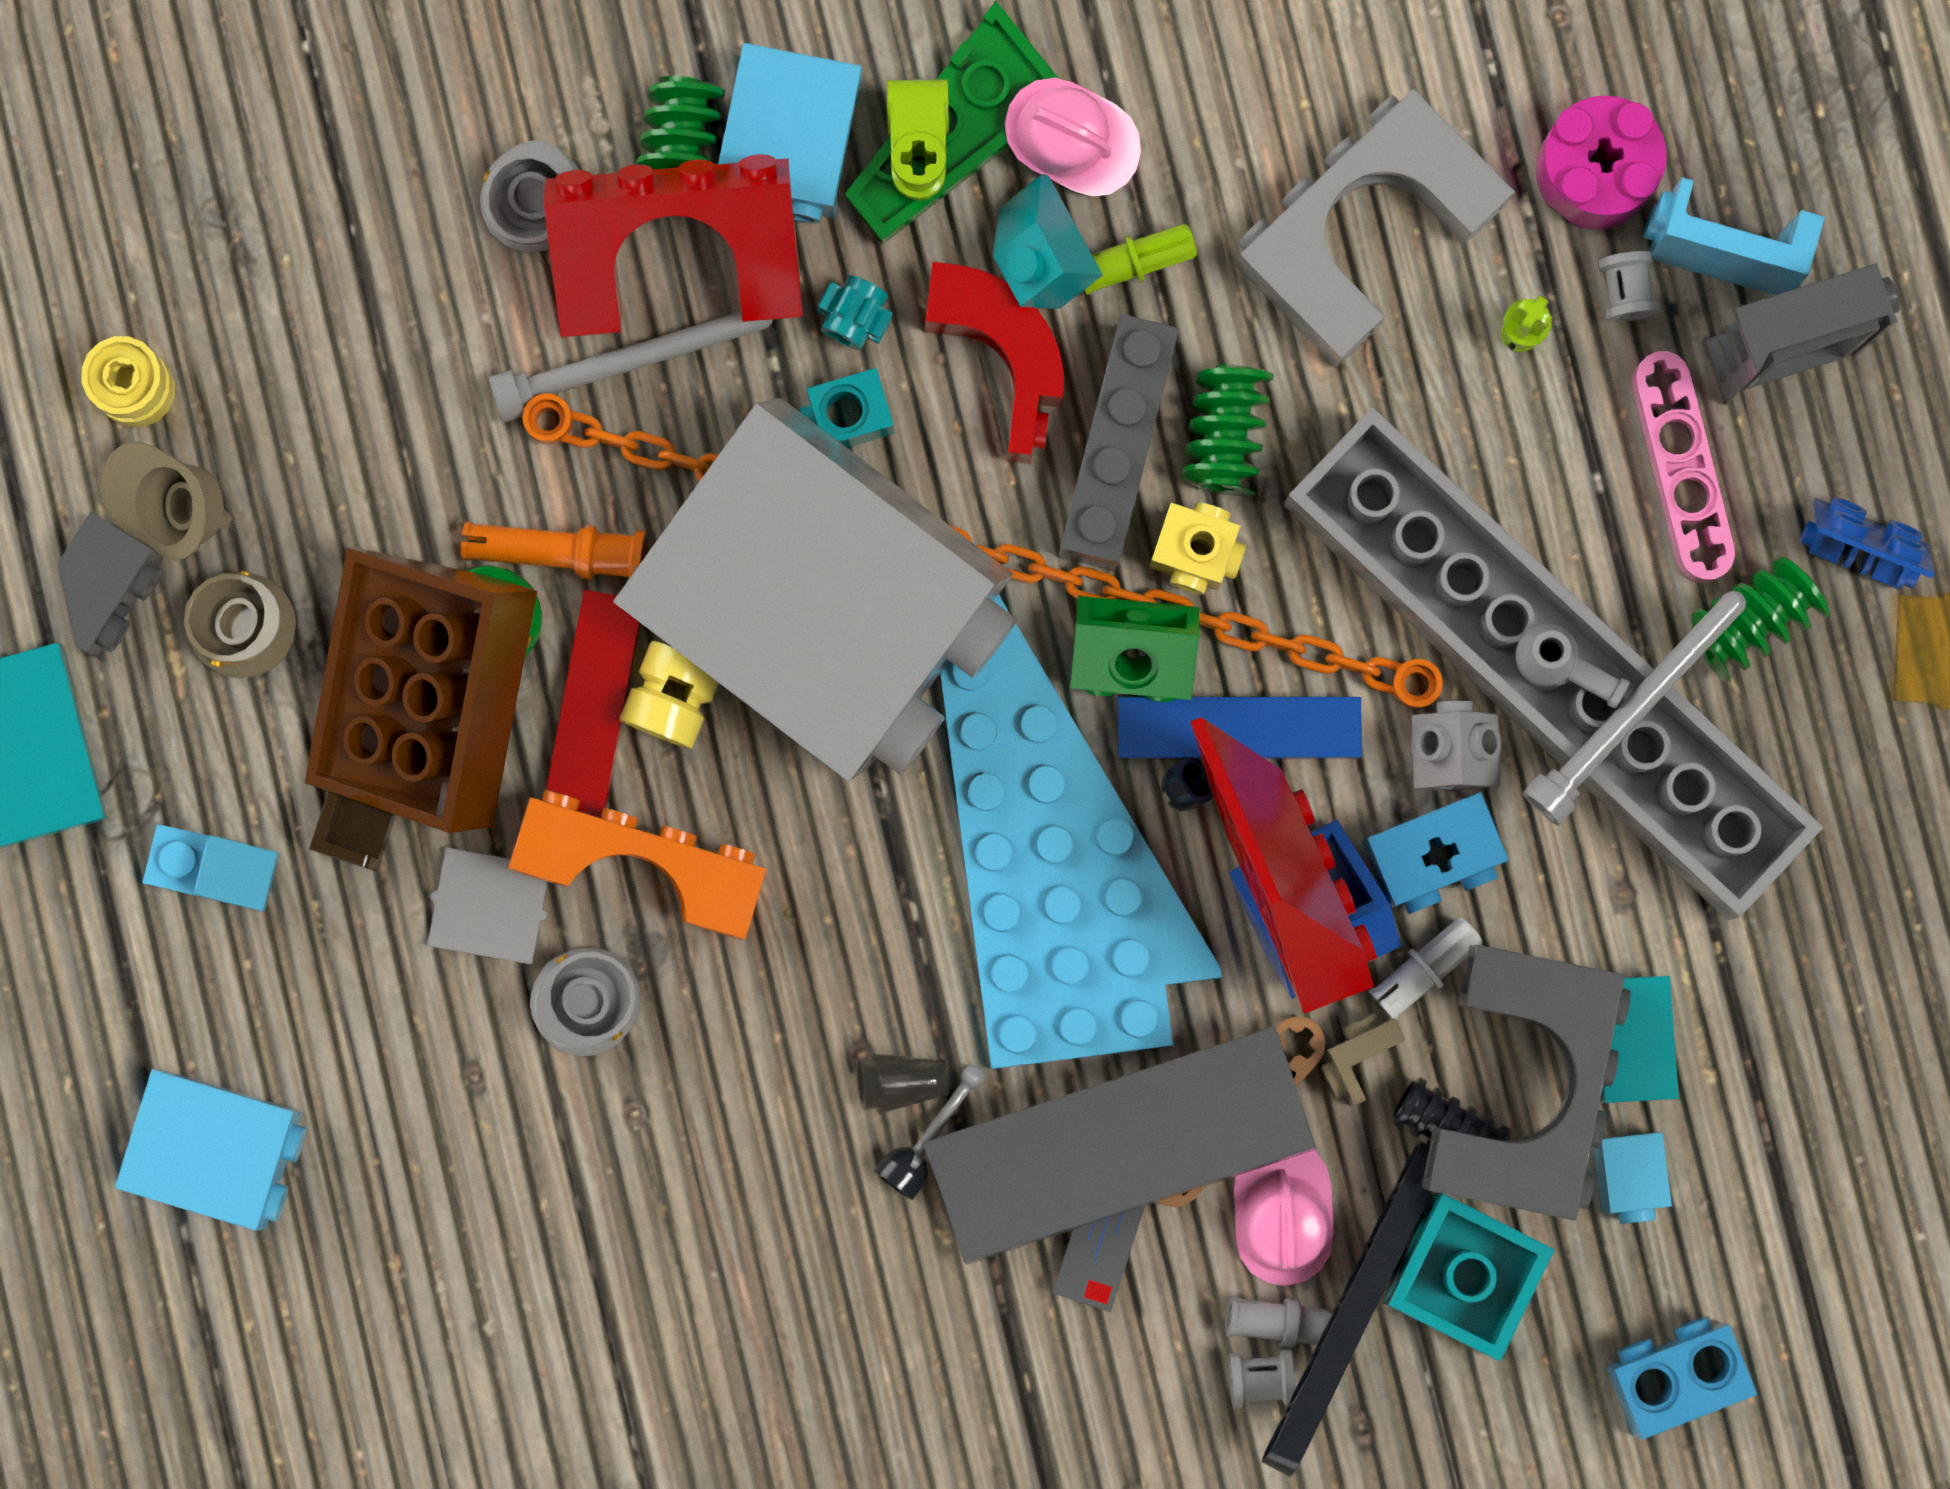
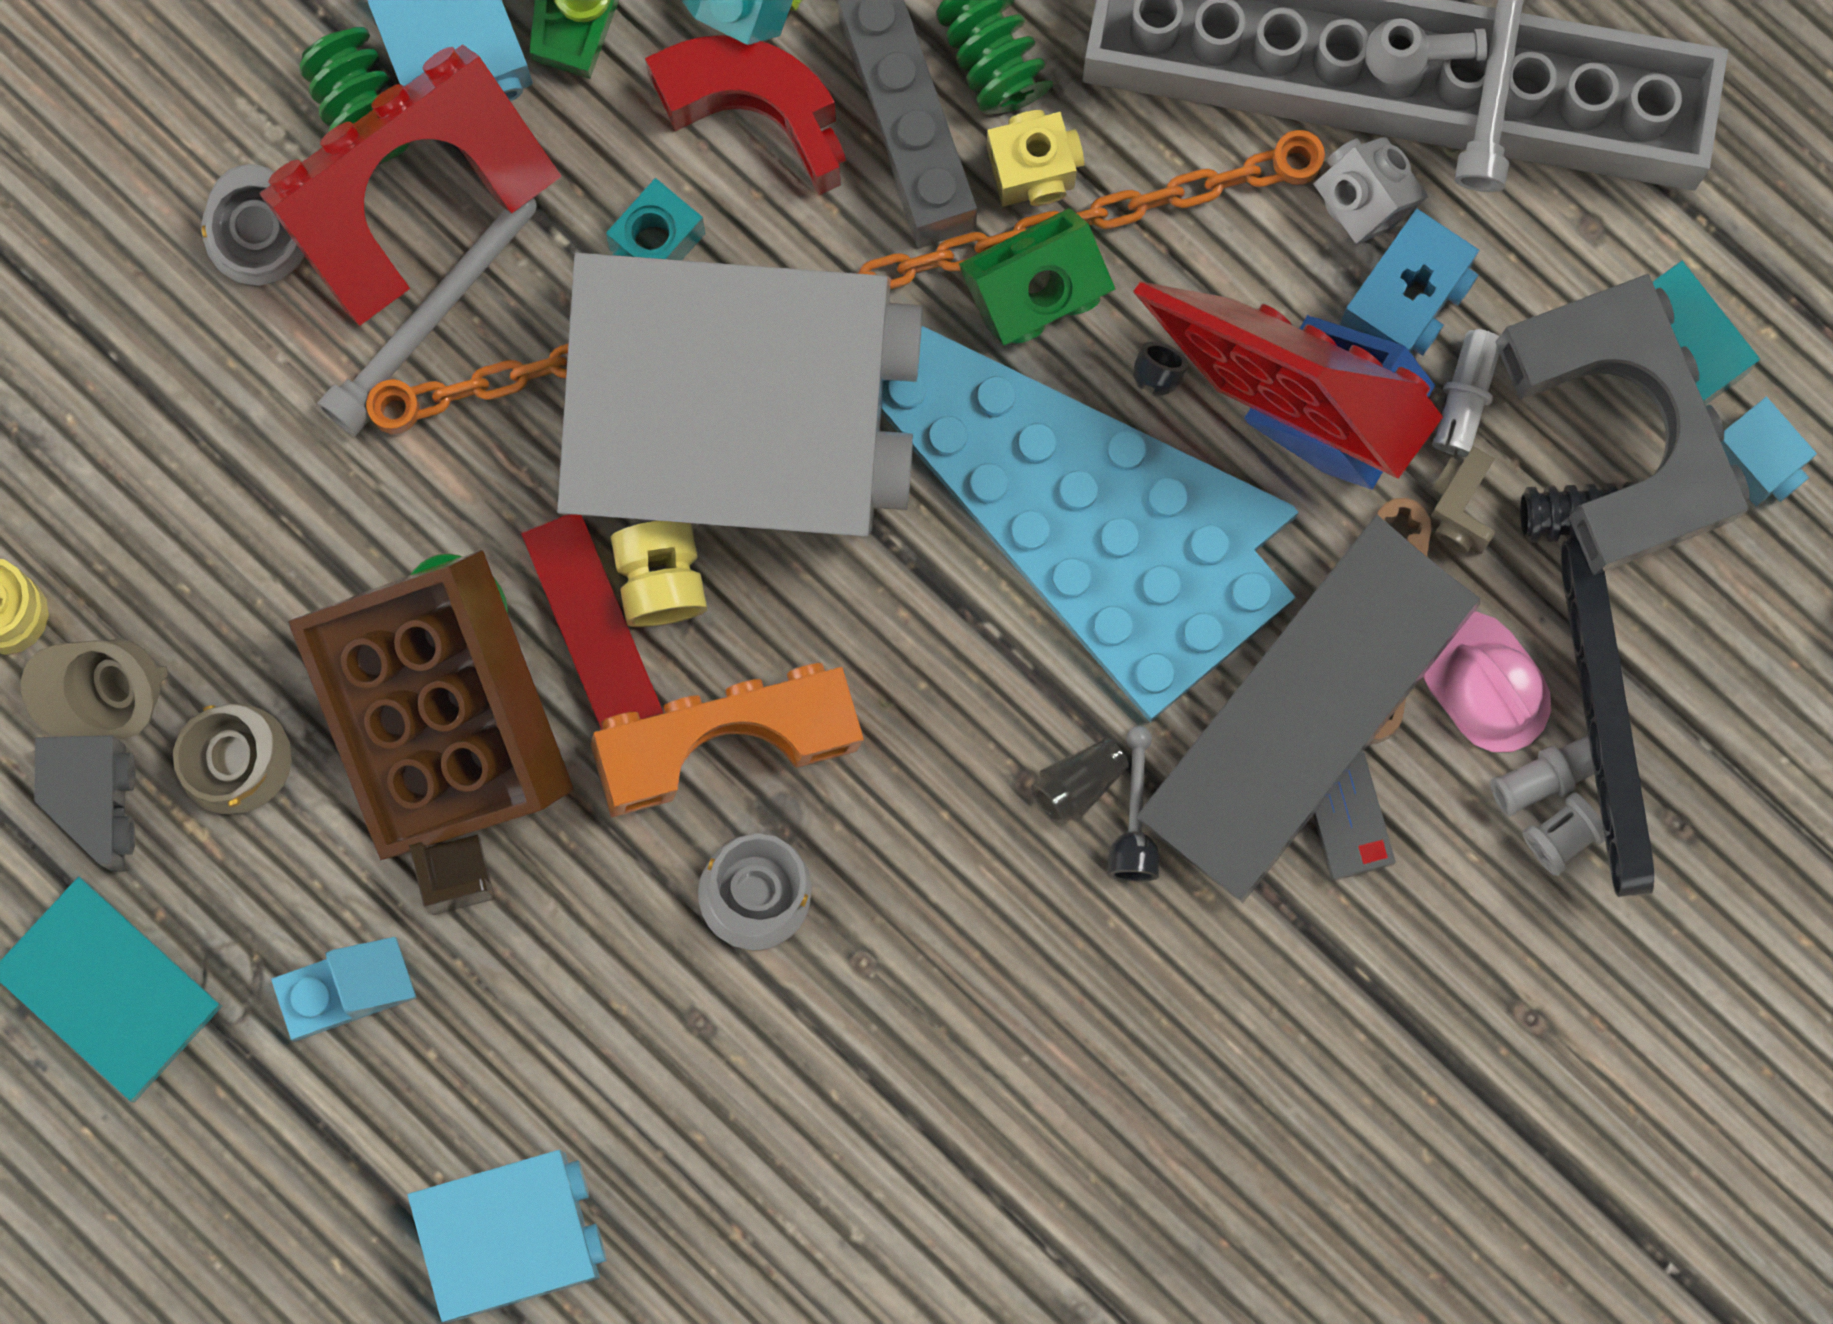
camera: 30 degrees left, 5 degrees down
(487, 908) = (614, 866): light grey piece -> none
(585, 551) = (501, 500): orange pin -> none
(854, 312) = (604, 147): teal gear -> none
(1264, 724) = (1209, 264): blue tile -> none
(1468, 1275) = (1685, 626): teal brick -> none

